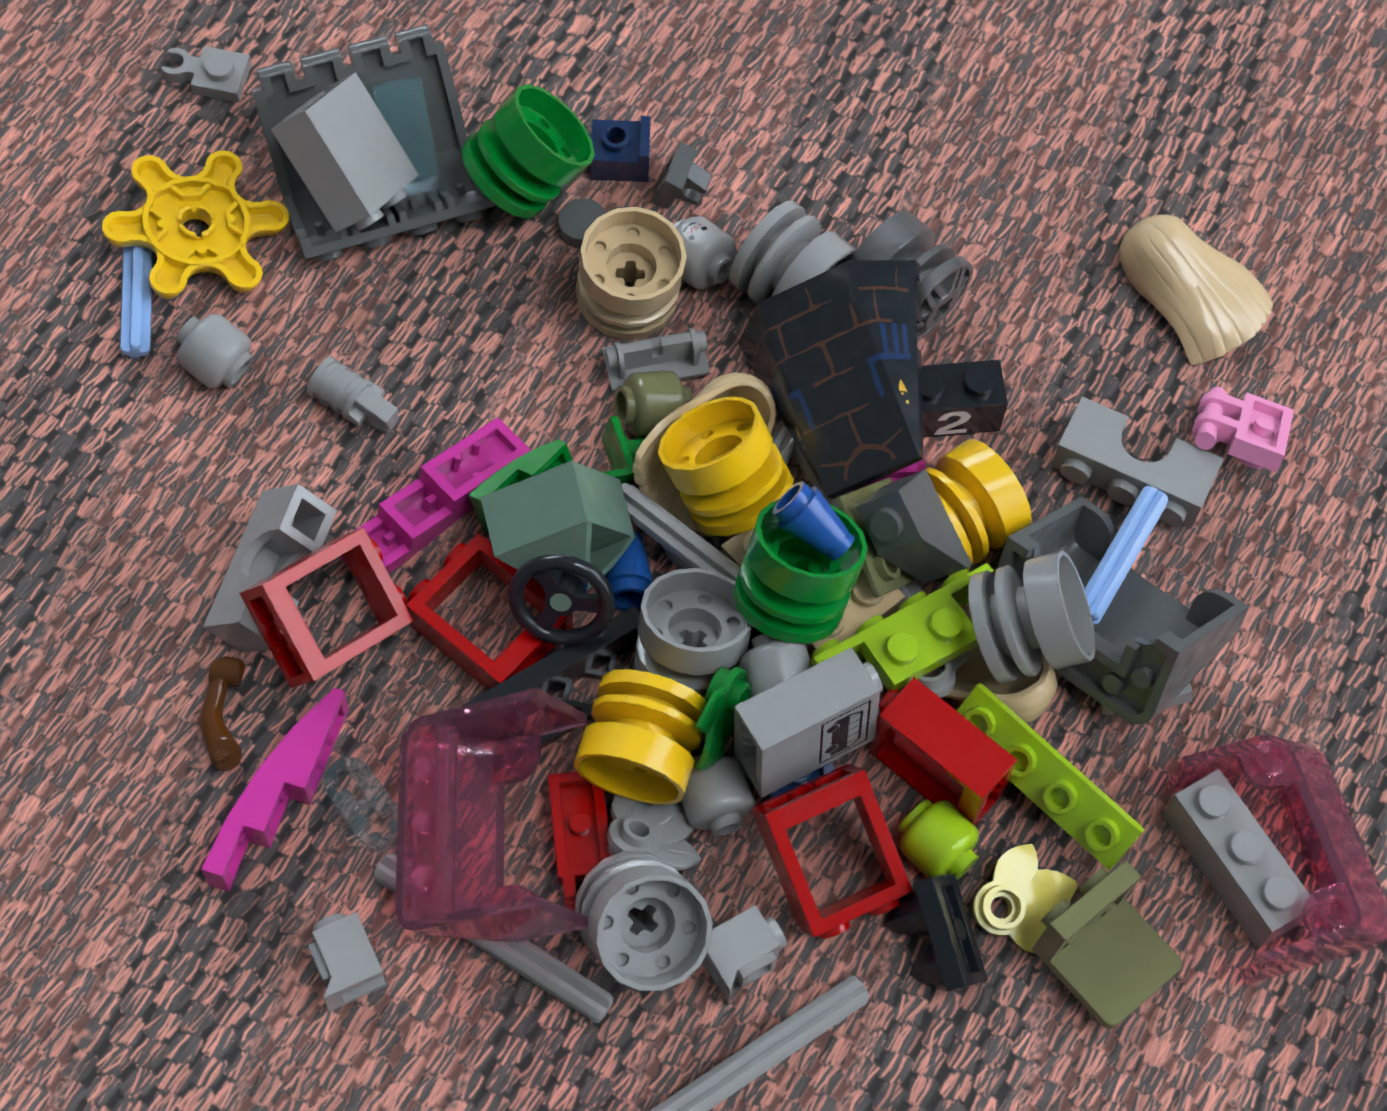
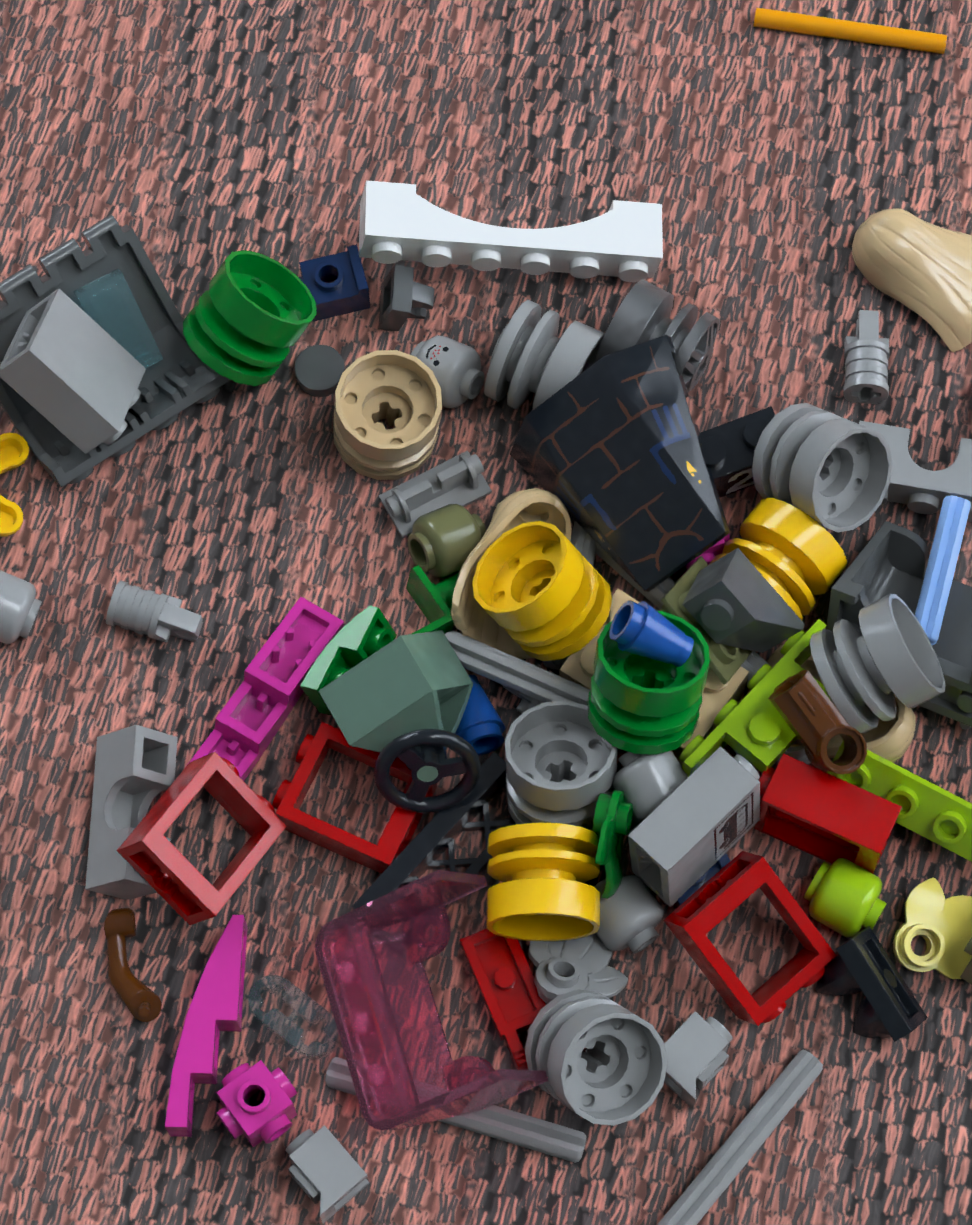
camera: 10 degrees left, 5 degrees up
(302, 891) = (258, 1122): none -> dark pink brick
(705, 113) = (408, 228): none -> white arch
(952, 652) = (816, 721): none -> reddish brown piece
(1033, 422) = (823, 466): none -> light grey wheel
(1104, 350) = (866, 361): none -> light grey hinge
(1174, 55) = (850, 30): none -> light orange bar

